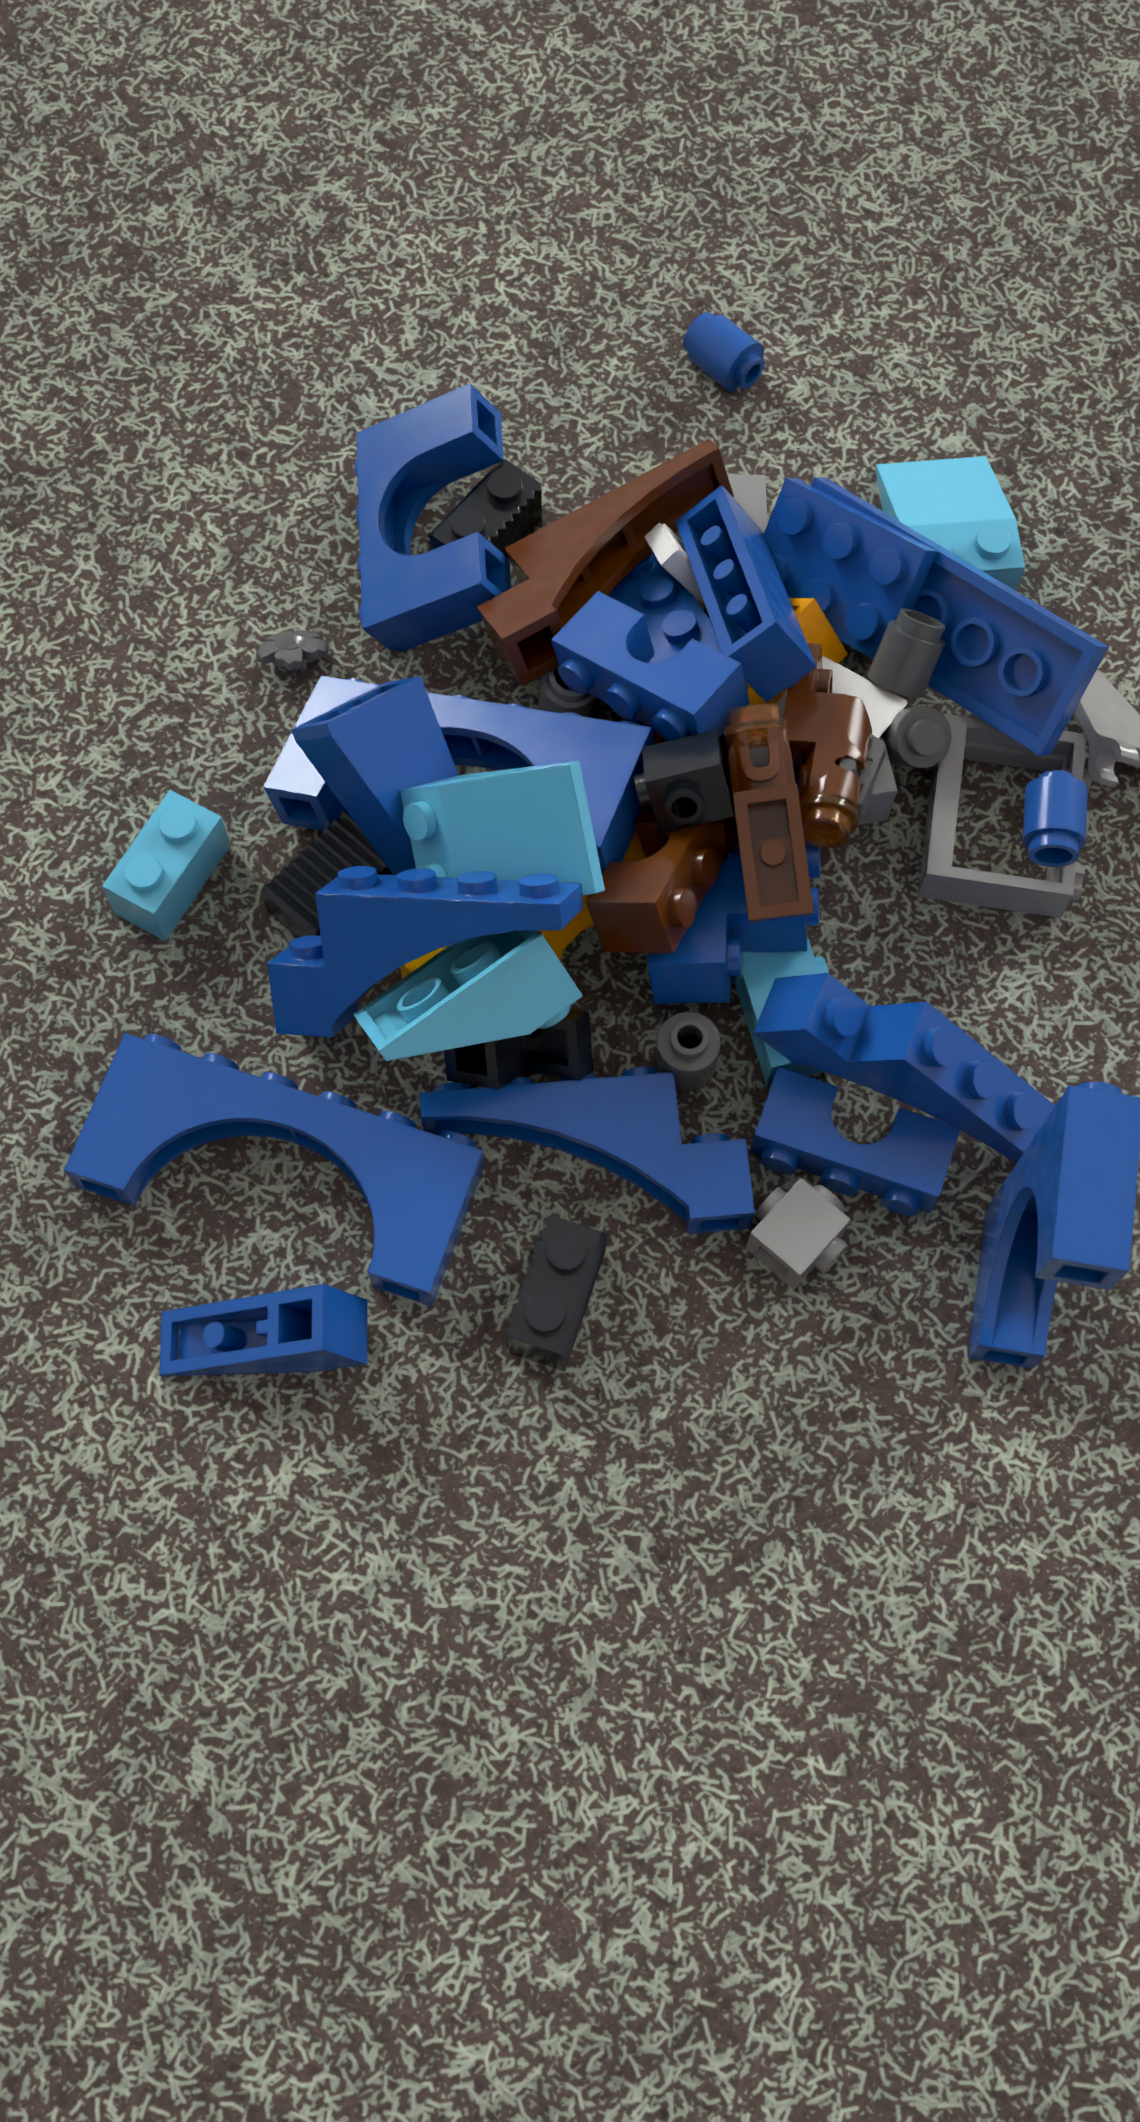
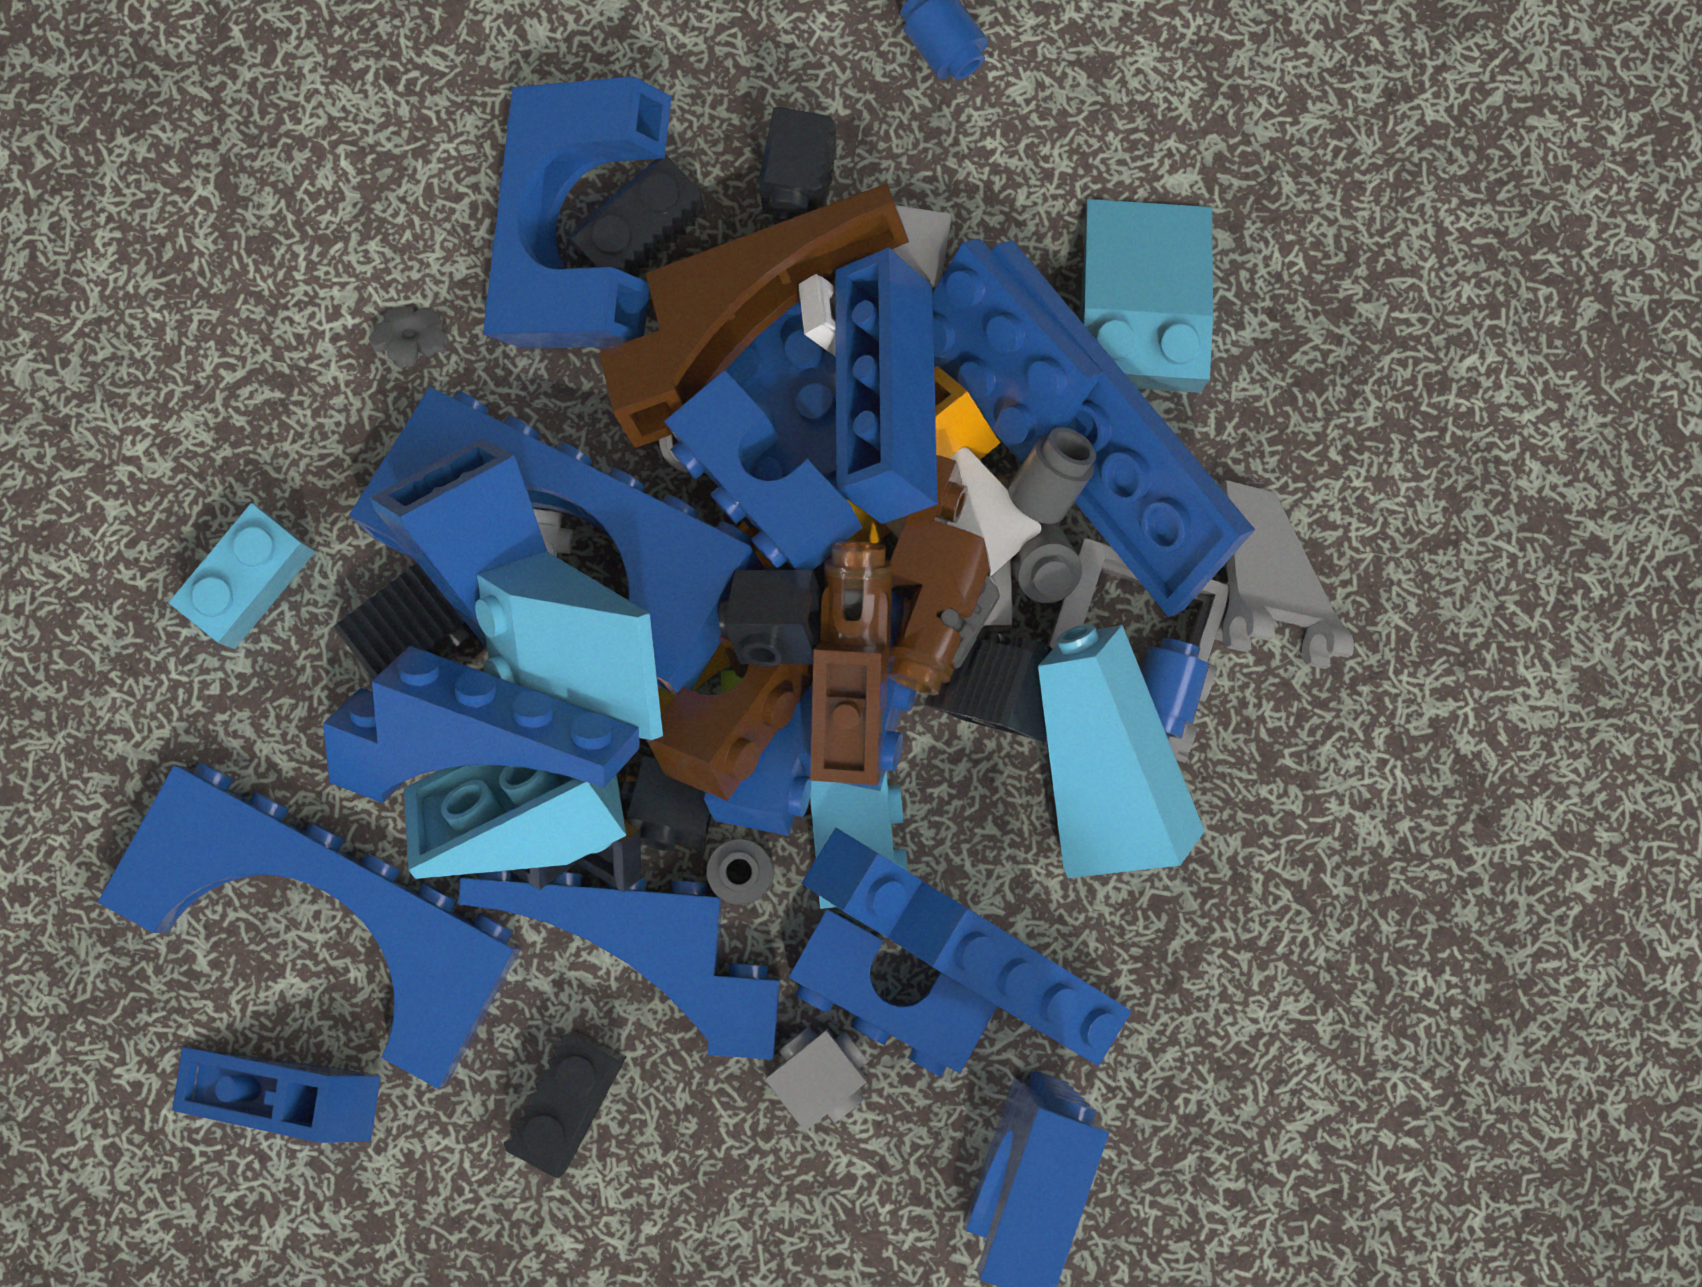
camera: 15 degrees right, 15 degrees up
(616, 1001) = (665, 809): none -> black brick
(622, 439) = (797, 163): none -> black brick
(899, 846) = (997, 686): none -> black brick
(1019, 879) = (1111, 760): none -> medium azure slope

